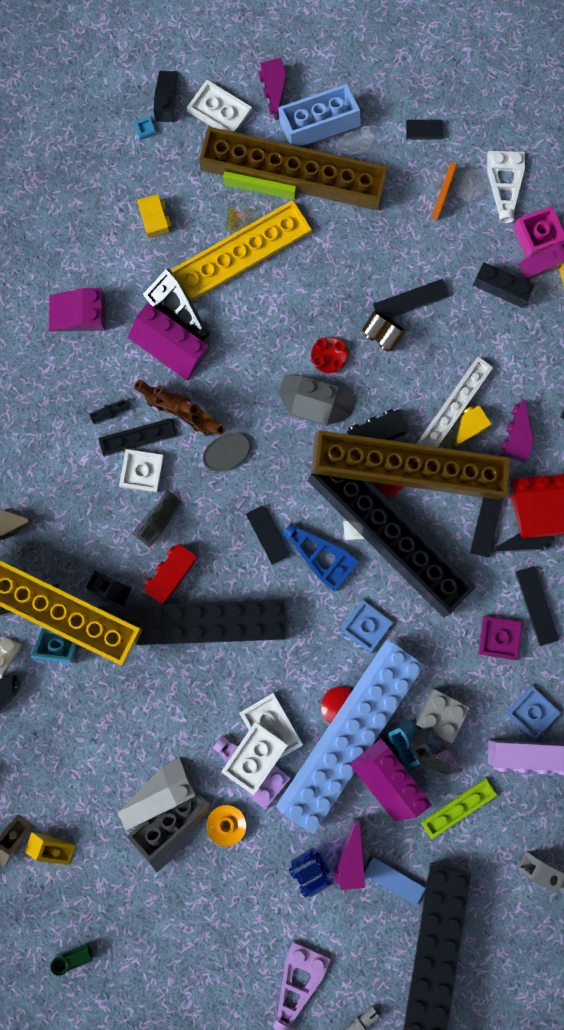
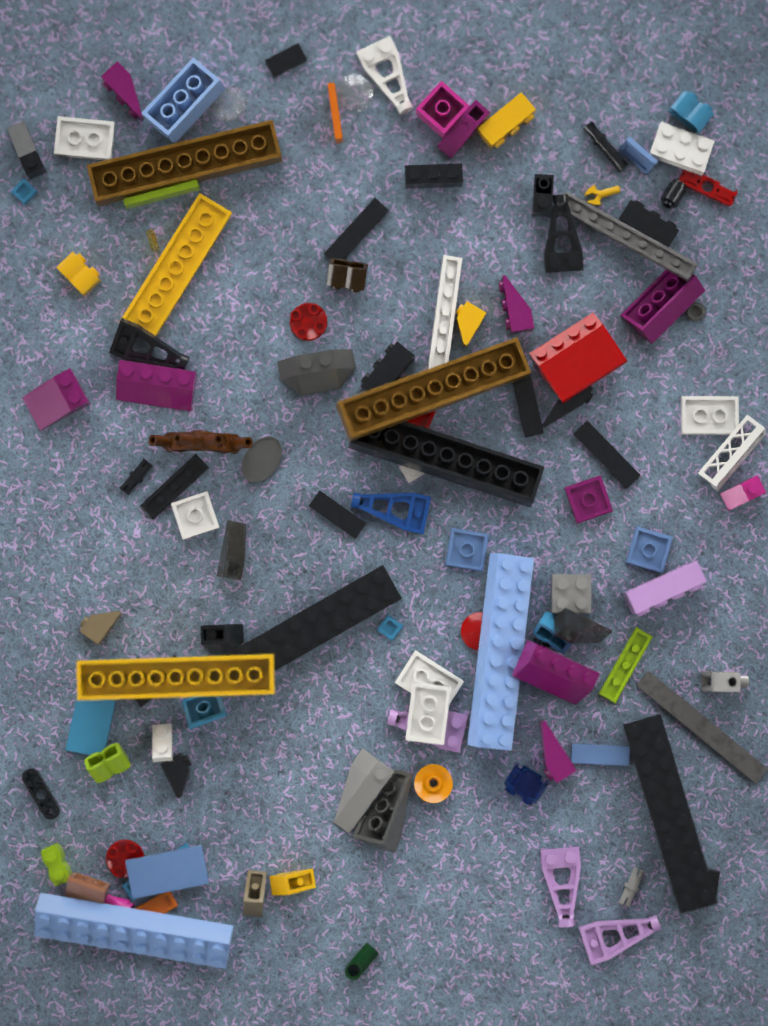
camera: 30 degrees left, 5 degrees up
(170, 573) = (270, 593): red brick -> none
(261, 660) = (390, 627): none -> dark azure tile
(502, 906) = (702, 727): none -> flat silver tile

